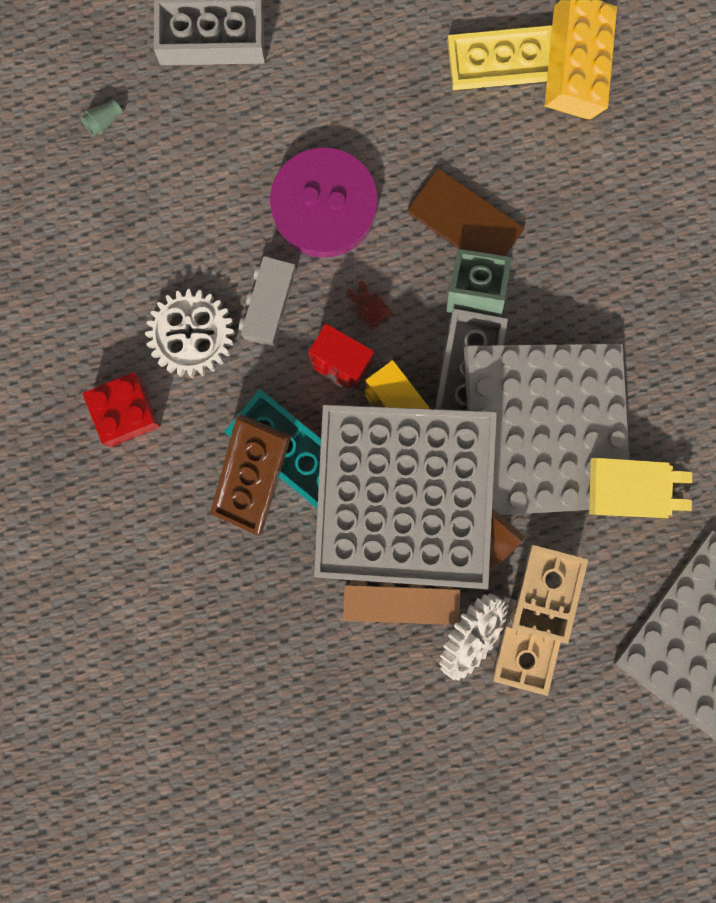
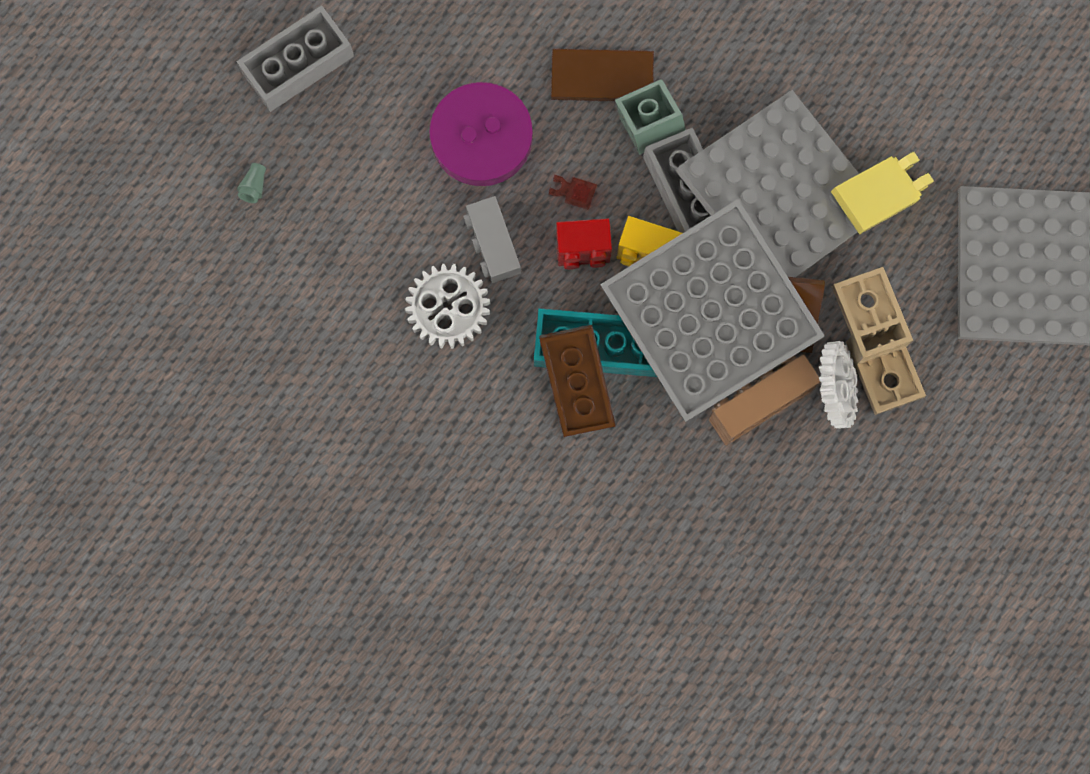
camera: 35 degrees left, 5 degrees down
(121, 410) = (436, 401): red brick -> none

